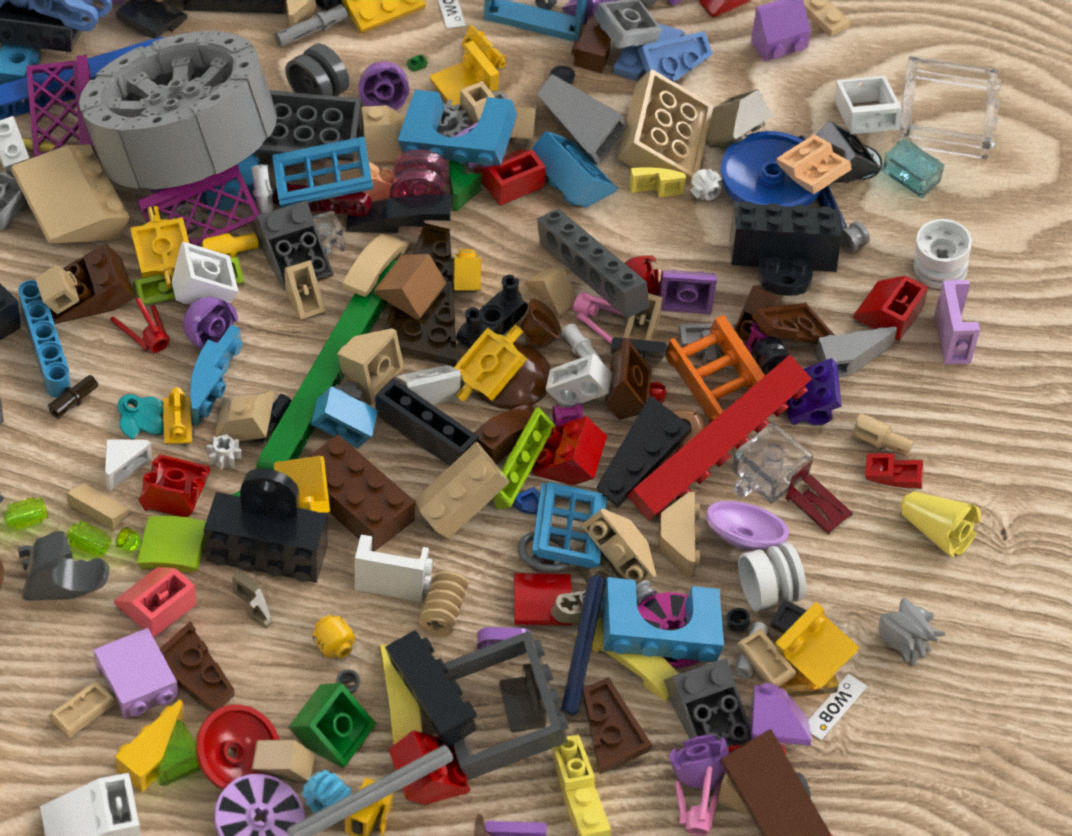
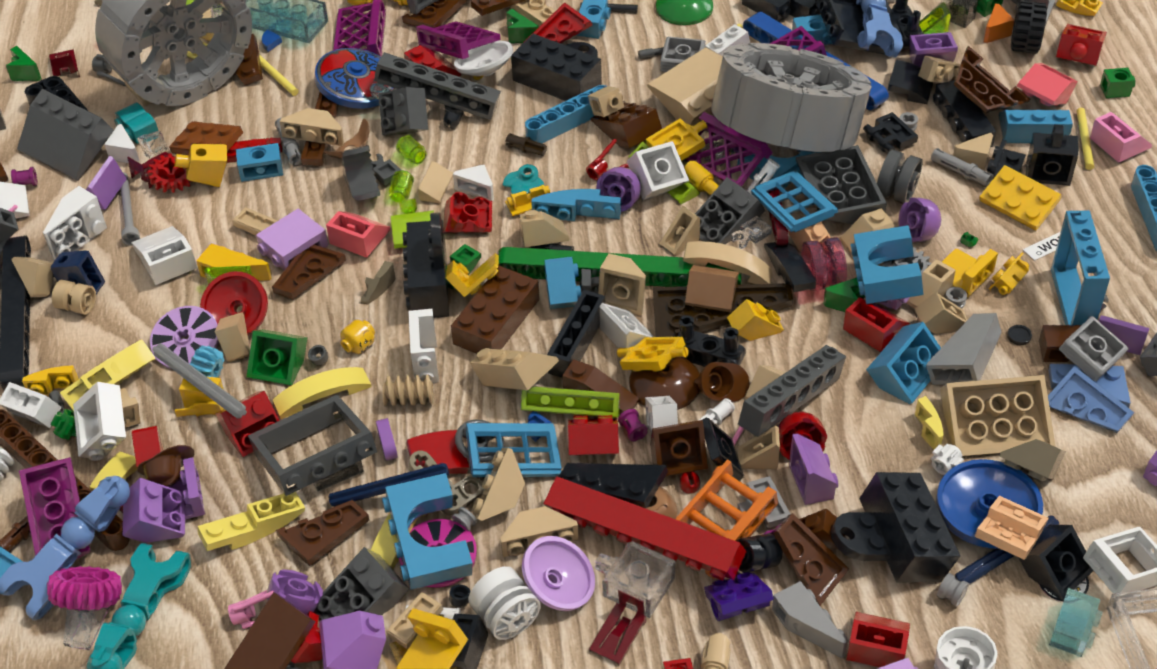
camera: 80 degrees right, 5 degrees down
(224, 451) = (506, 231): white gear -> none
(431, 688) = (307, 393): black brick -> none

